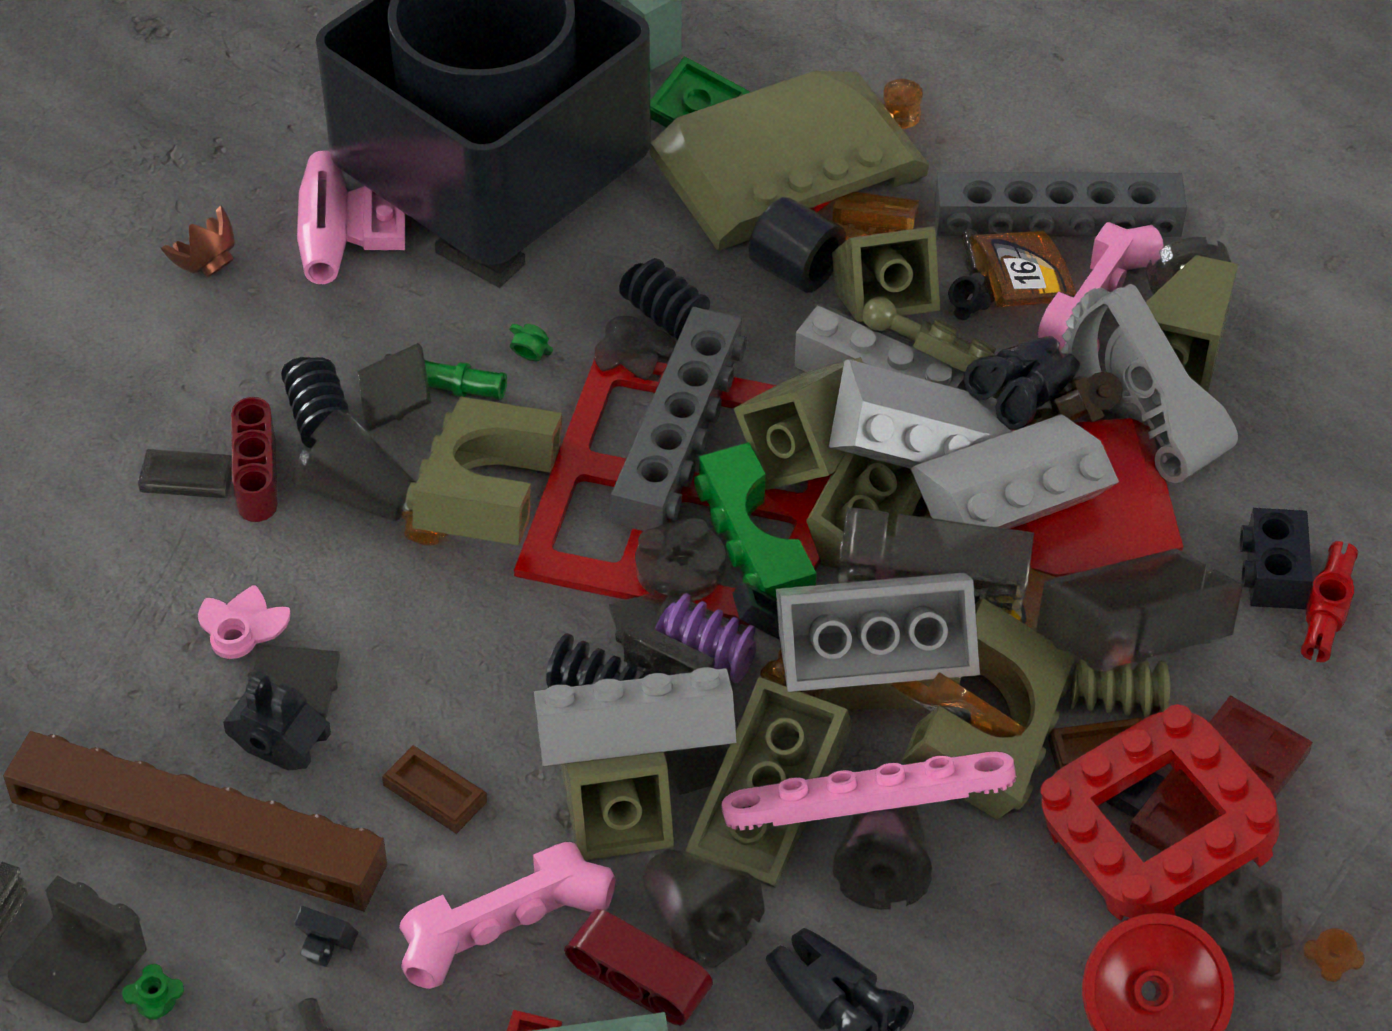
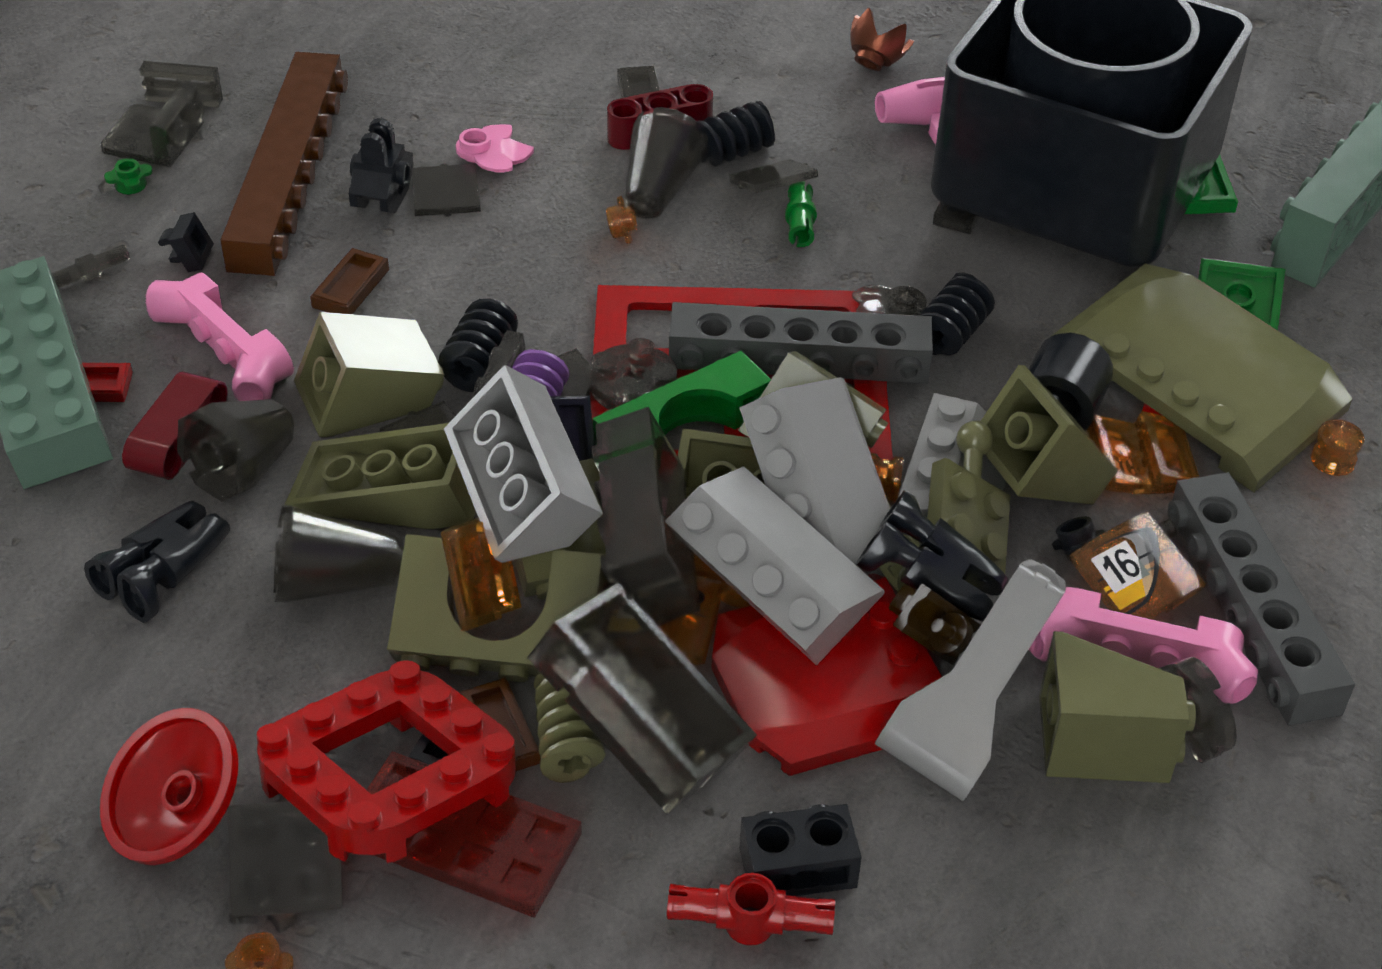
camera: 75 degrees right, 5 degrees down
(476, 435) = (726, 222): olive arch -> none
(530, 342) = (862, 243): green plate -> none
(635, 716) = (399, 342): light grey slope -> none
(869, 790) = (358, 521): bright pink plate -> none

